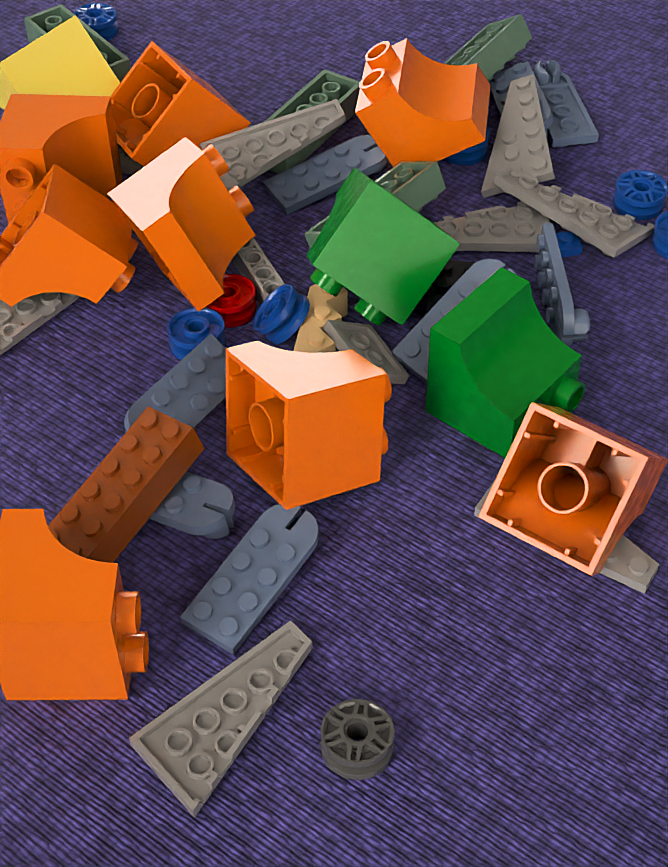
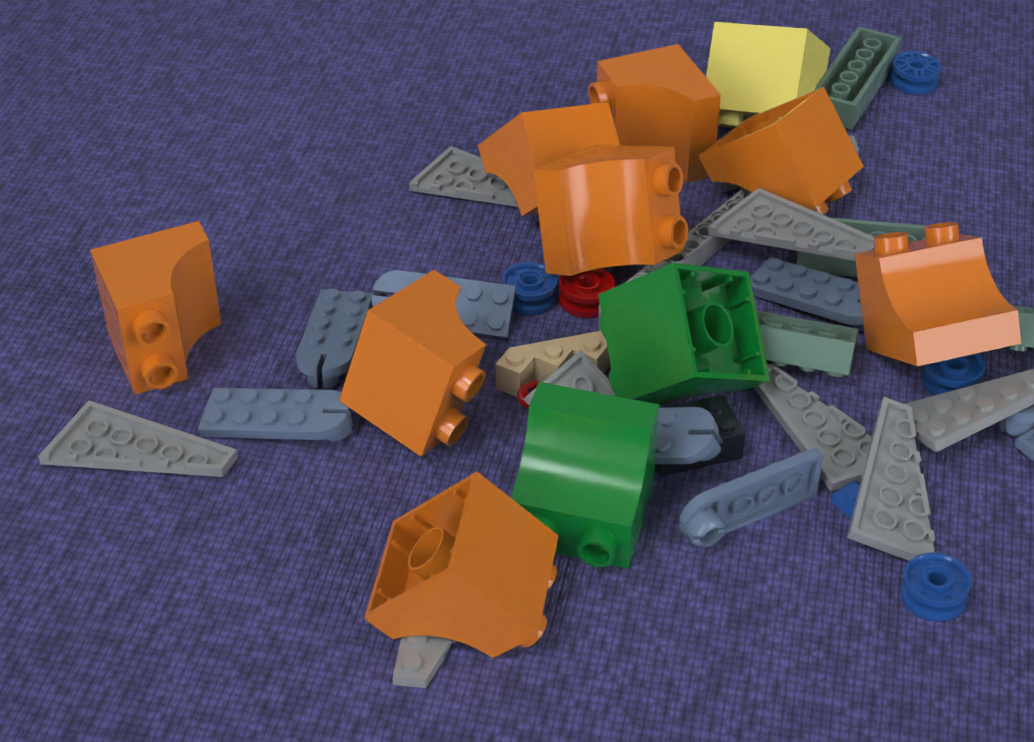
camera: 65 degrees right, 5 degrees down
(127, 487) = (298, 301): dark orange brick -> none
(281, 314) = (575, 321): blue wheel -> none
(357, 758) = (138, 527): dark grey wheel -> none
(640, 194) = (981, 535): blue wheel -> none

